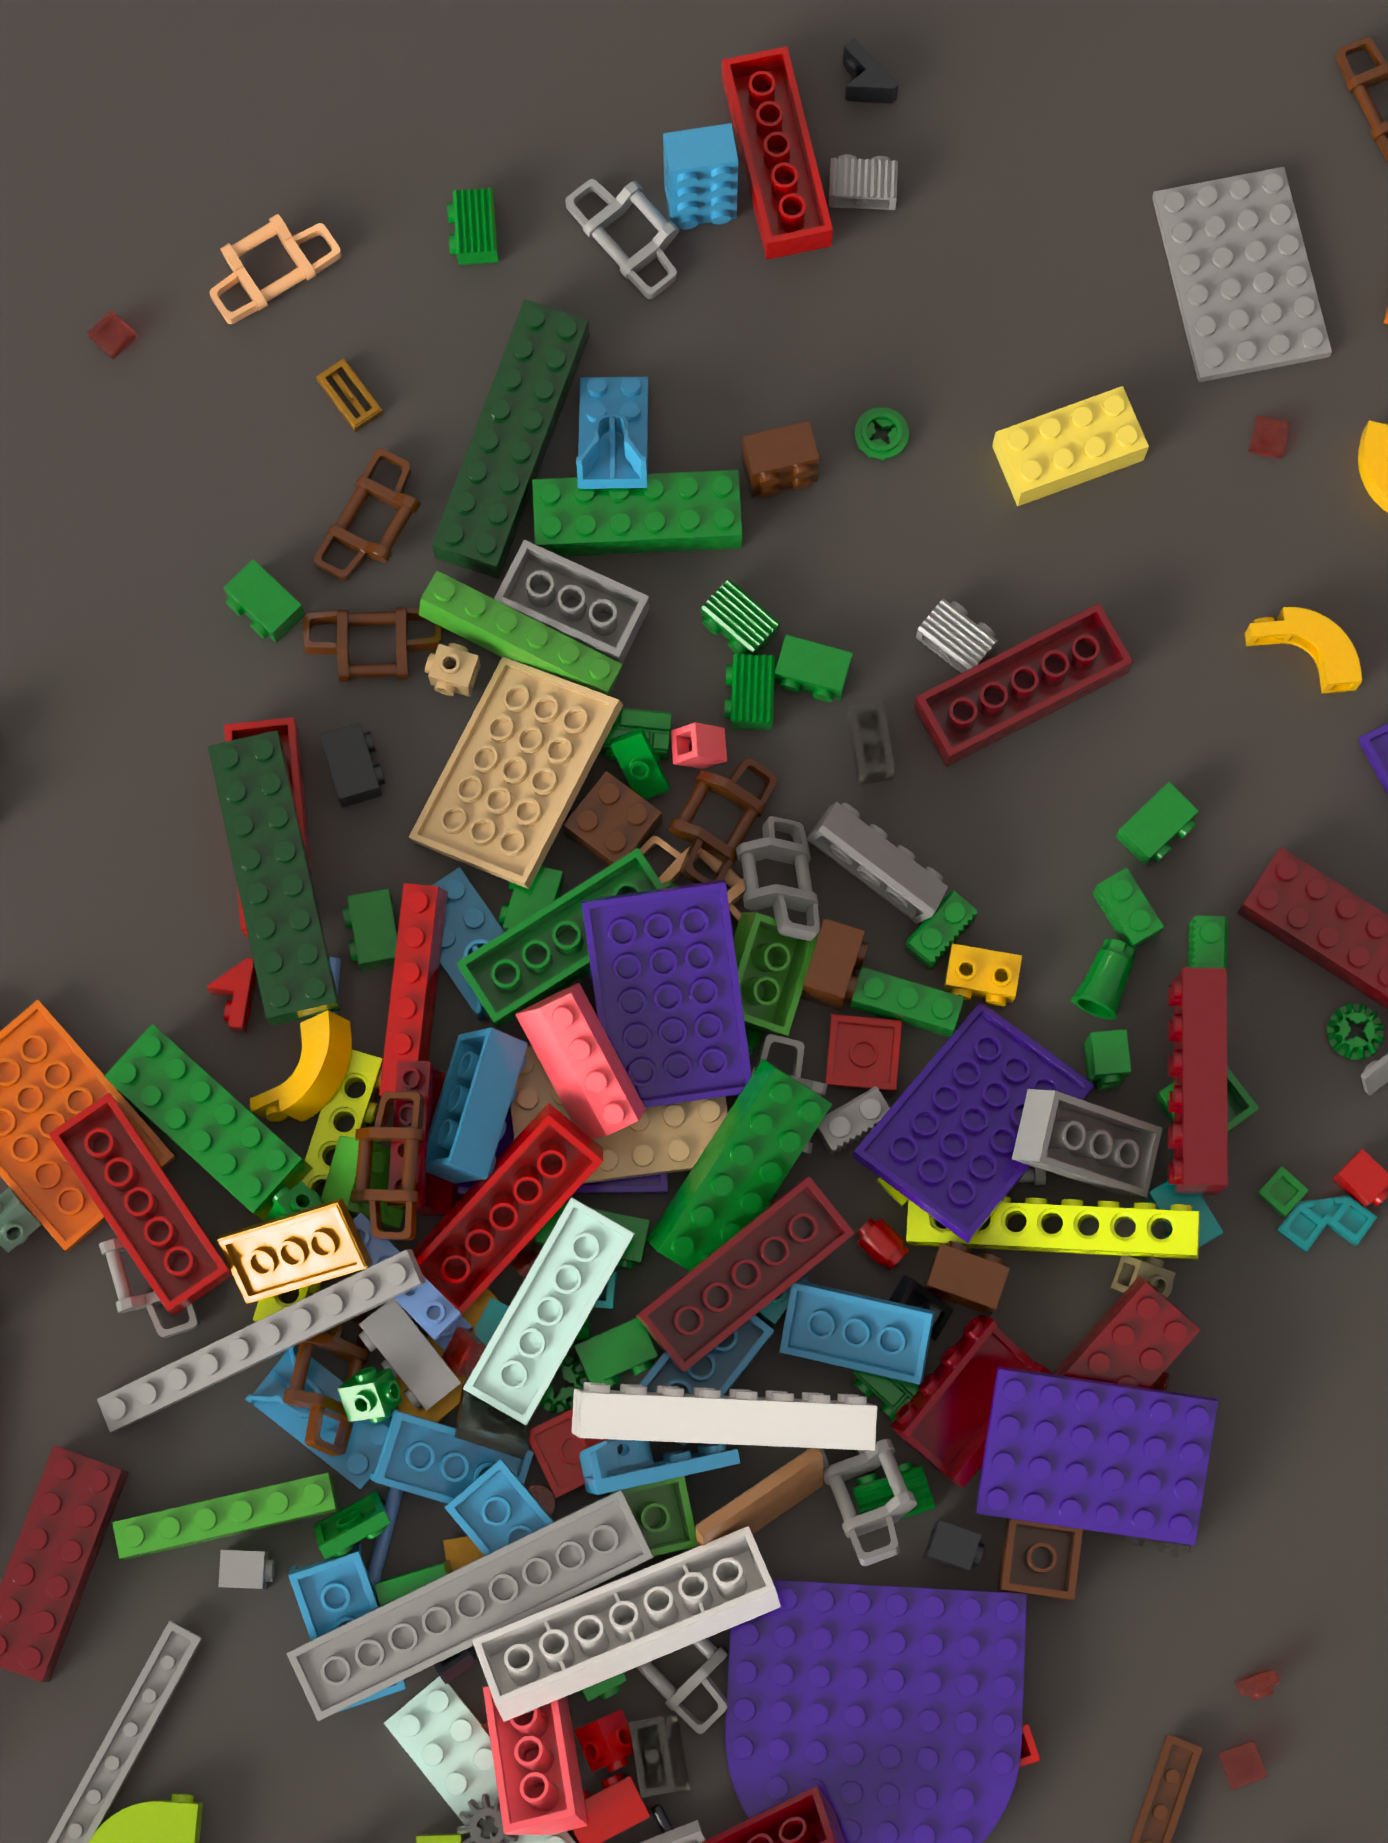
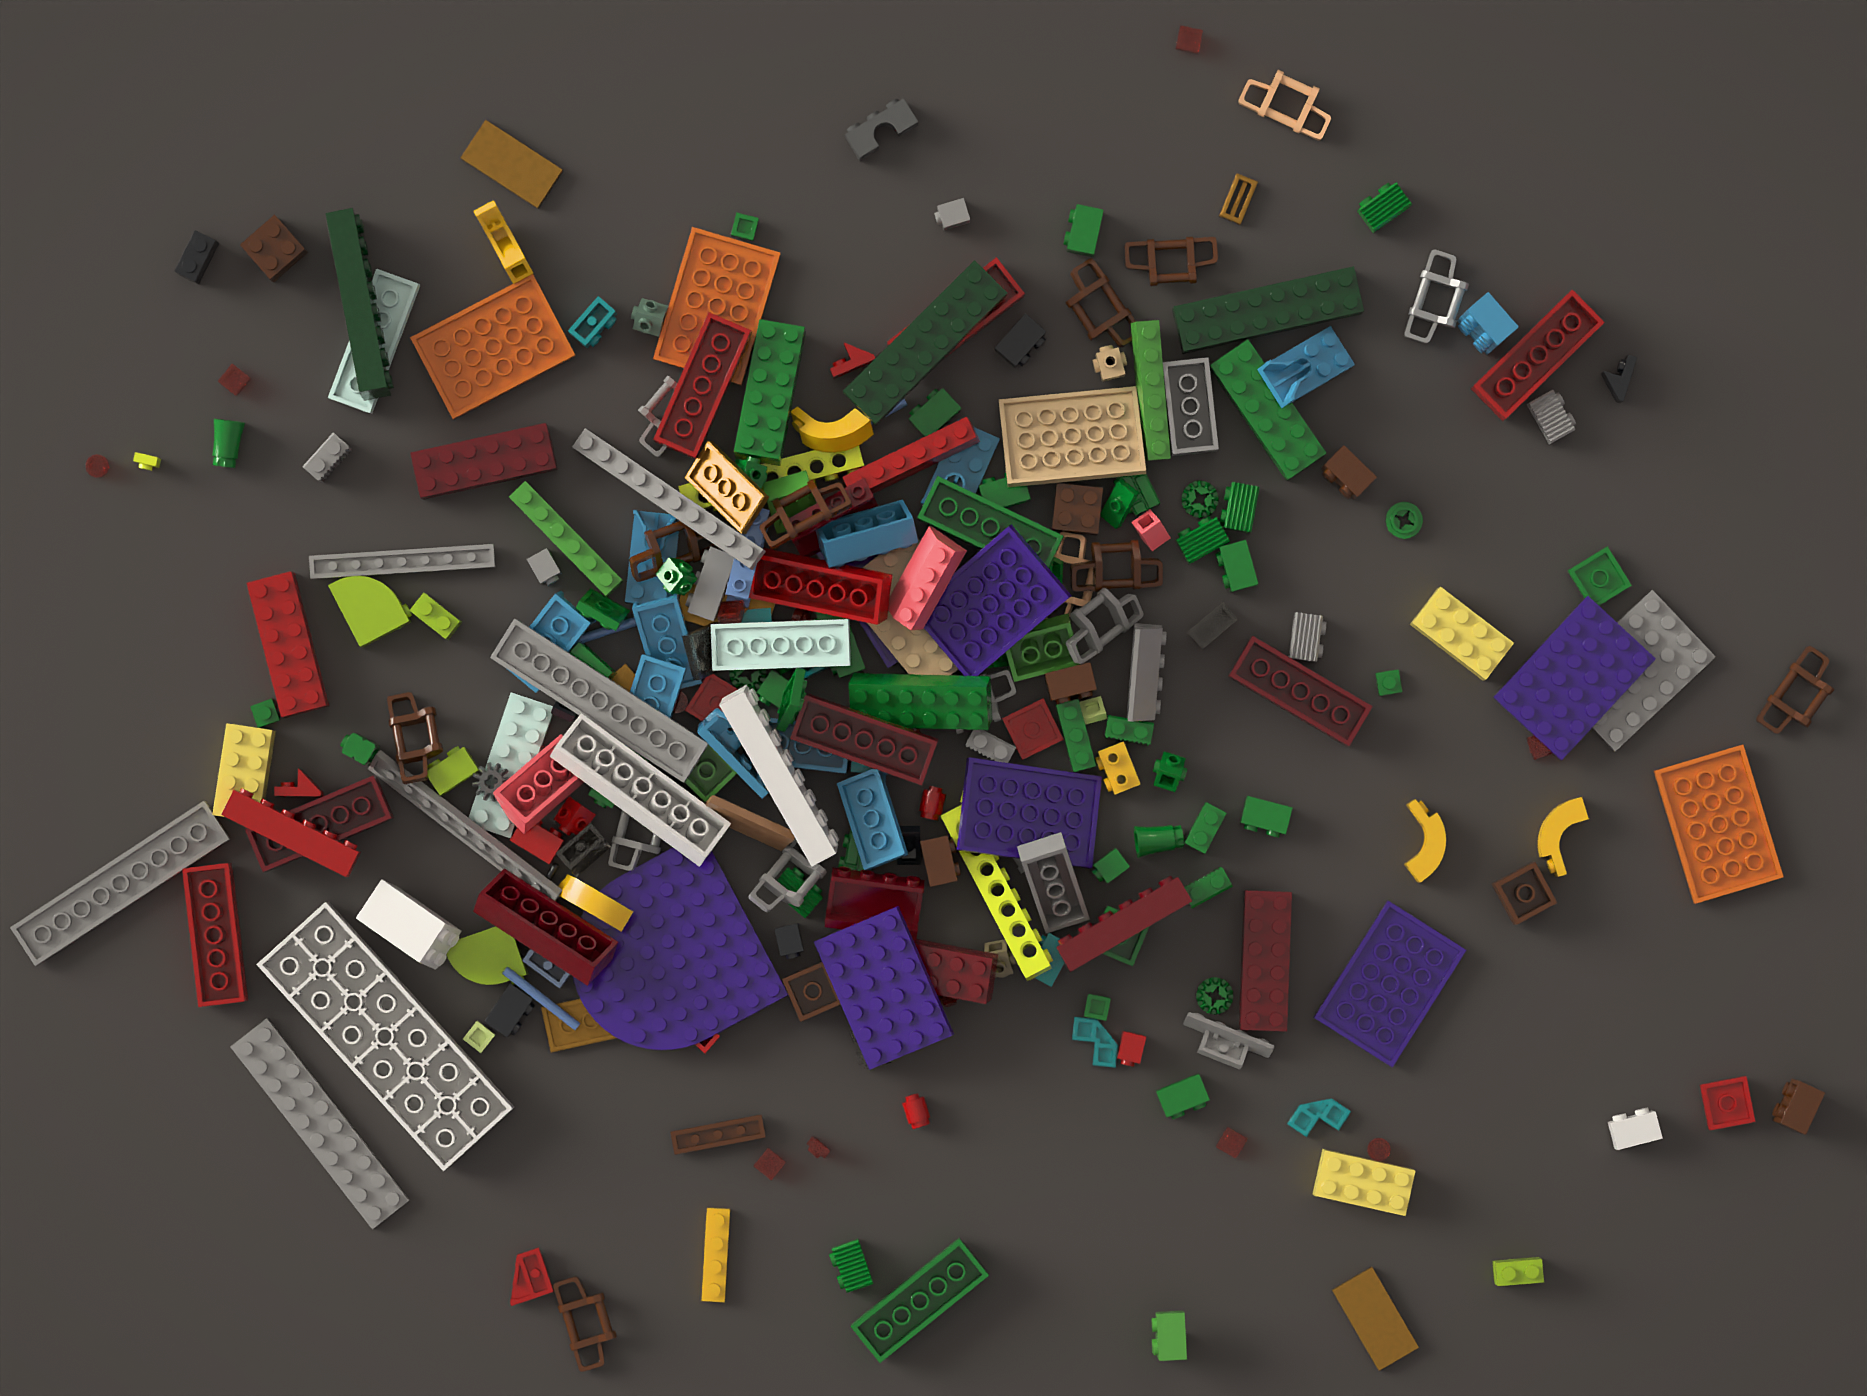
camera: 55 degrees right, 10 degrees up
(134, 751) = (952, 214): none -> light grey brick
(215, 1762) = (435, 616): none -> lime brick
(632, 1339) = (791, 700): none -> green plate
(708, 676) = (1189, 496): none -> green gear
(741, 1785) = (594, 902): none -> yellow arch
(887, 958) = (1093, 710): none -> yellowish green plate
(1026, 910) = (1169, 771): none -> green brick
(1076, 573) = (1388, 682): none -> green plate
(1100, 245) = (1599, 577): none -> green plate
(1210, 344) = (1574, 678): none -> dark purple plate
(1284, 1517) = (916, 1111): none -> red brick

